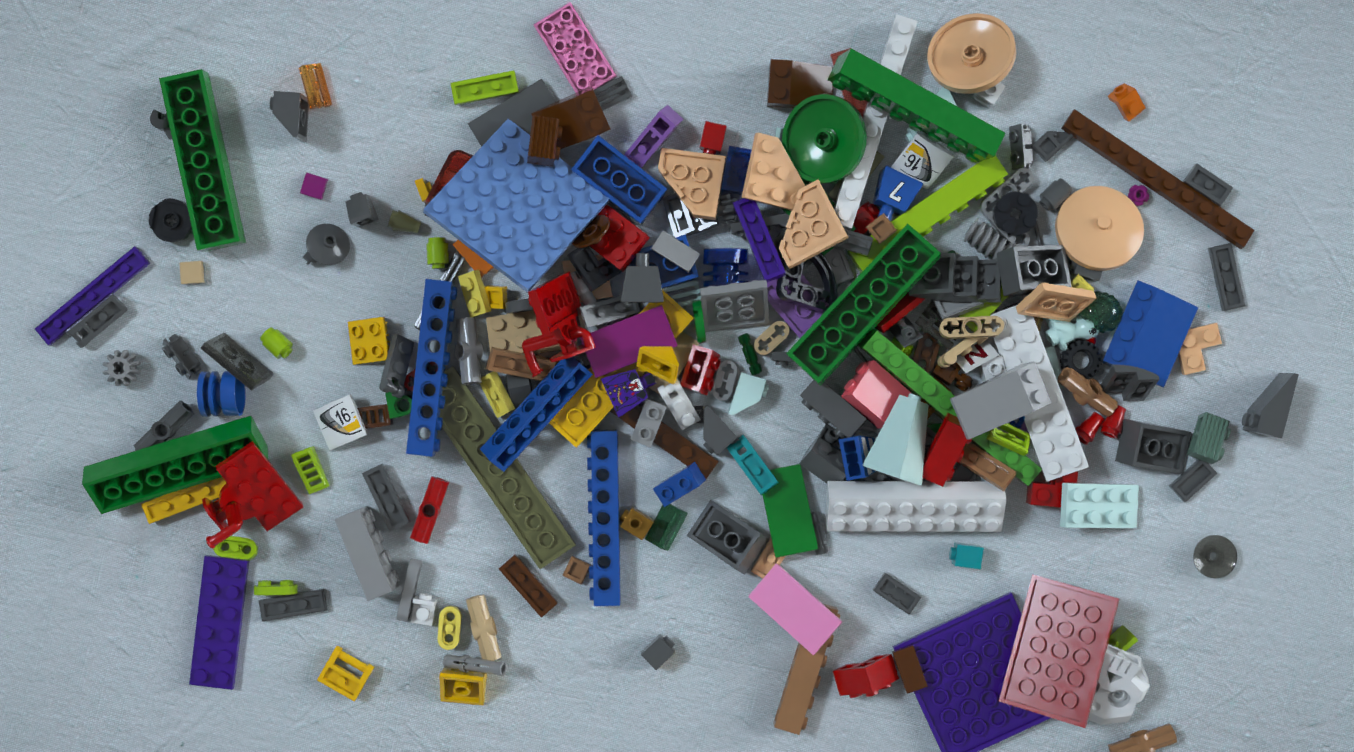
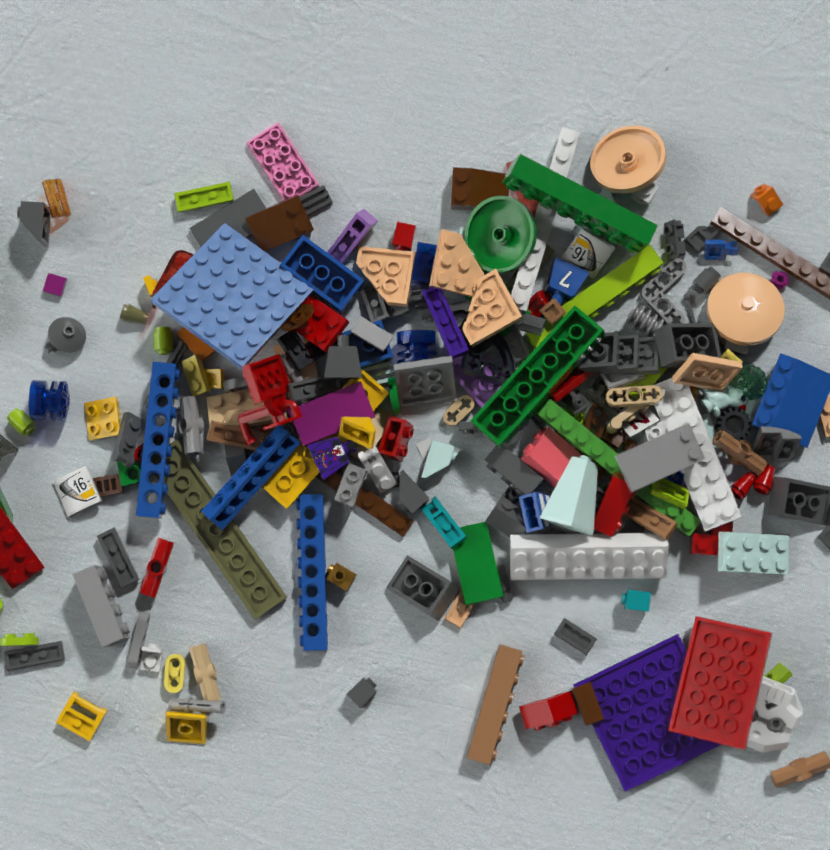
camera: 10 degrees right, 5 degrees down
(303, 319) = (45, 400): none -> clear blue wheel
(303, 473) = (38, 522): lime slope -> none
(361, 210) = (96, 304): dark grey slope -> none
(496, 394) = (216, 464): light yellow plate -> none
(528, 585) = (245, 634): reddish brown plate -> none
(543, 141) = (255, 240): reddish brown brick -> none
(576, 570) = (288, 620): medium nougat tile -> none
(666, 526) = (368, 579): clear green slope -> none
(679, 484) = (378, 540): blue brick -> none
(729, 382) = (413, 447): light grey beam -> none
(750, 354) = (440, 425): dark green axle -> none
(795, 609) = (483, 650): bright pink tile -> none
(1005, 206) = (676, 287): black plate -> none
(1068, 158) = (717, 249): none -> blue plate

